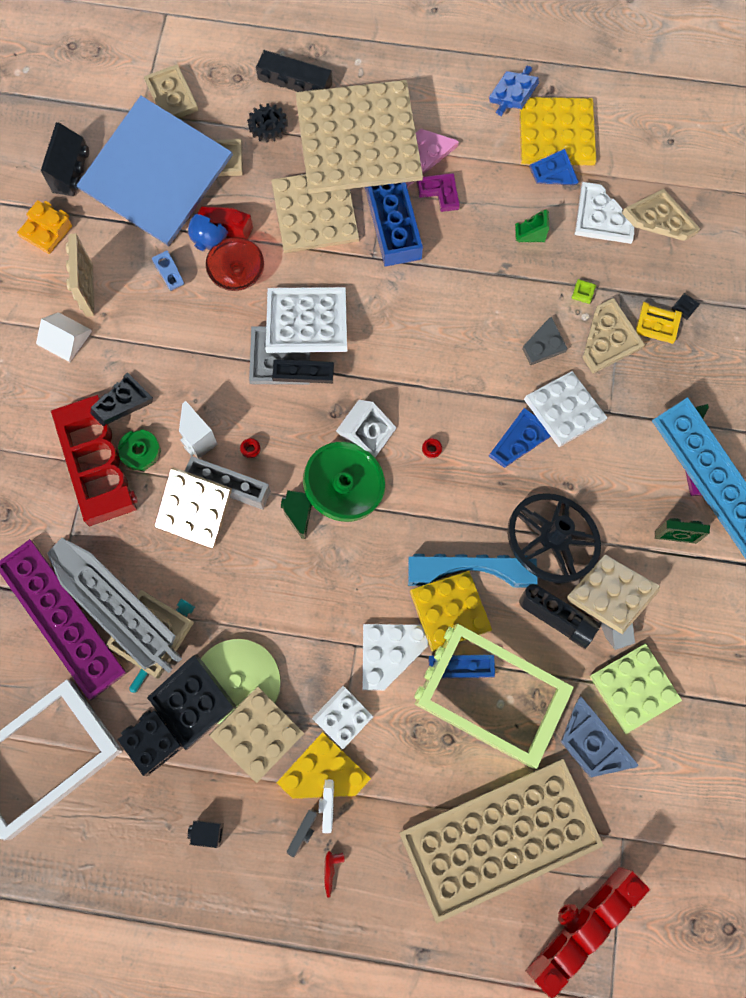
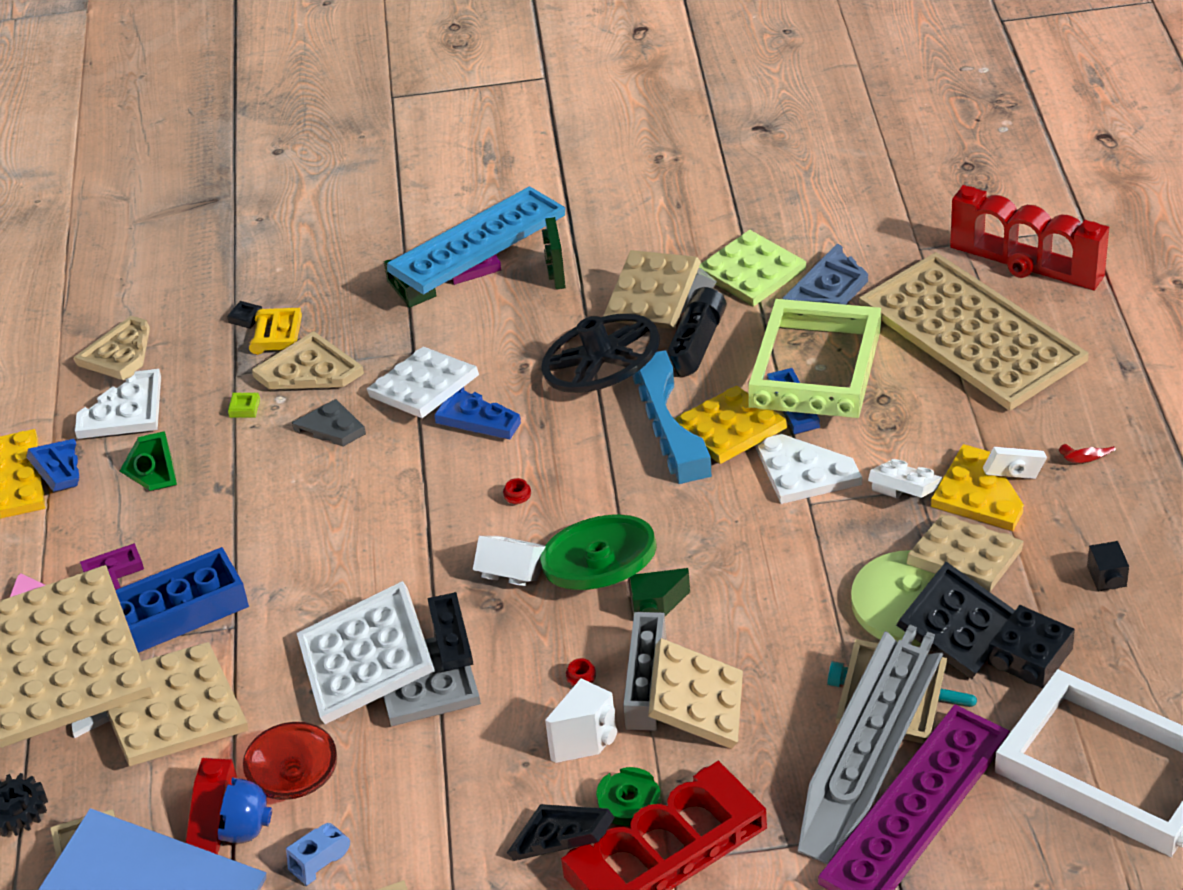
camera: 100 degrees left, 30 degrees down
(303, 834) = (1056, 471): dark grey plate -> none

